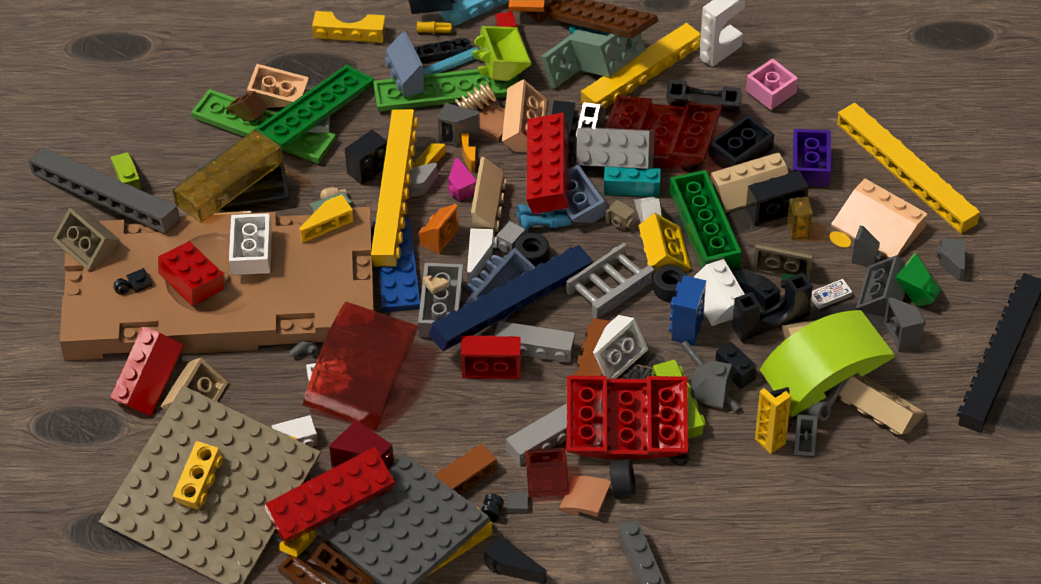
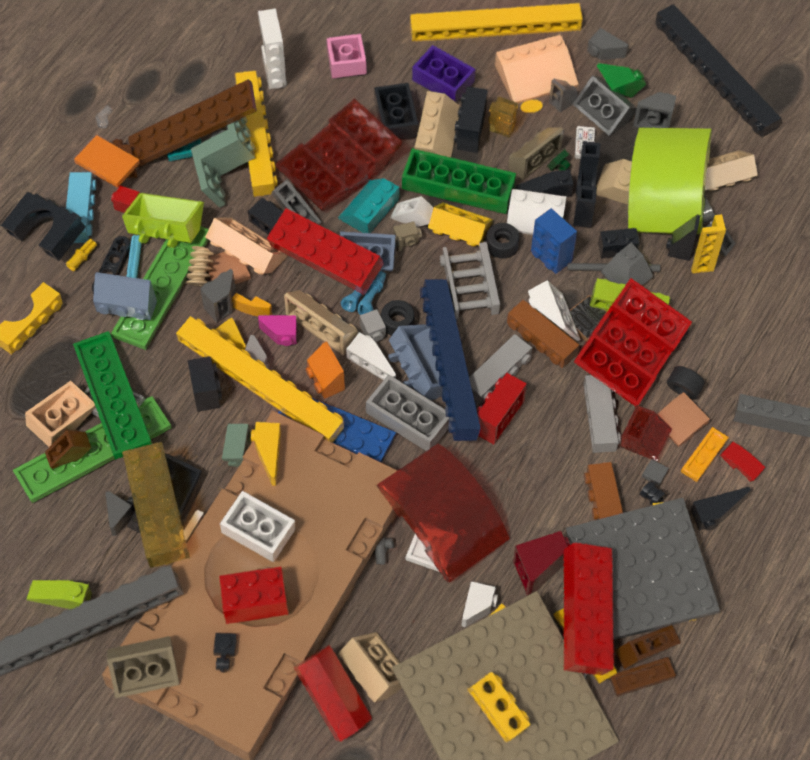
camera: 60 degrees left, 10 degrees up
(327, 192) = (218, 435): tan cylinder -> none
(435, 284) = (397, 406): tan tile -> none
(564, 531) = (704, 454): none -> light orange tile
(576, 560) = (741, 459): none -> red slope
(615, 147) = (341, 194): light grey brick -> none
(680, 93) = (320, 113): black arch -> none

